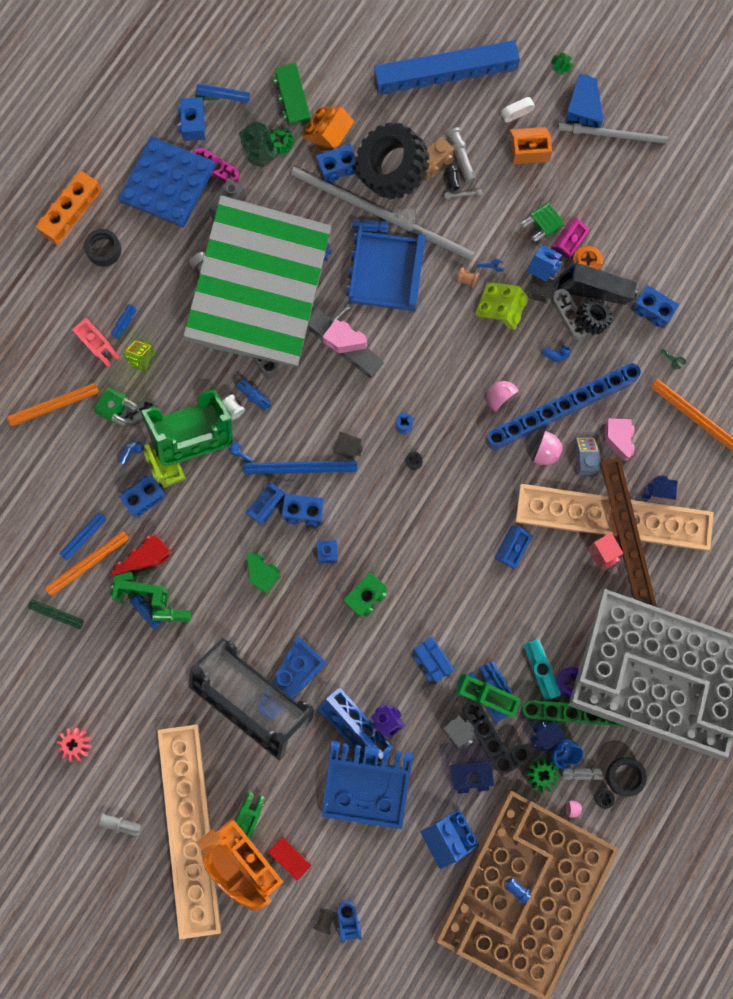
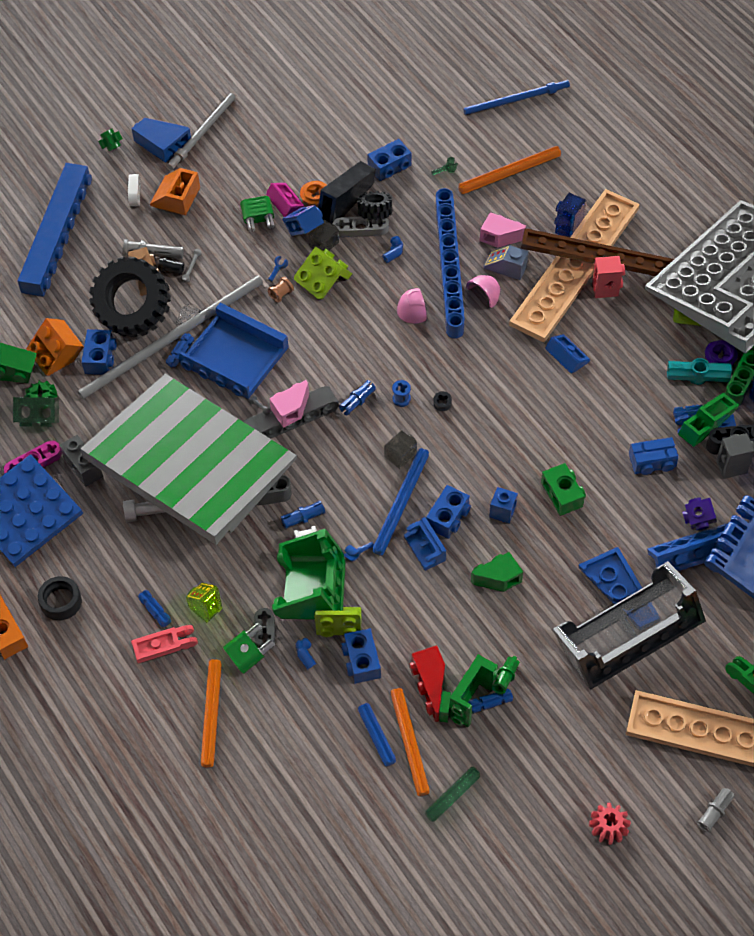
camera: 65 degrees left, 20 degrees down
(385, 389) = (357, 397): none -> blue pin

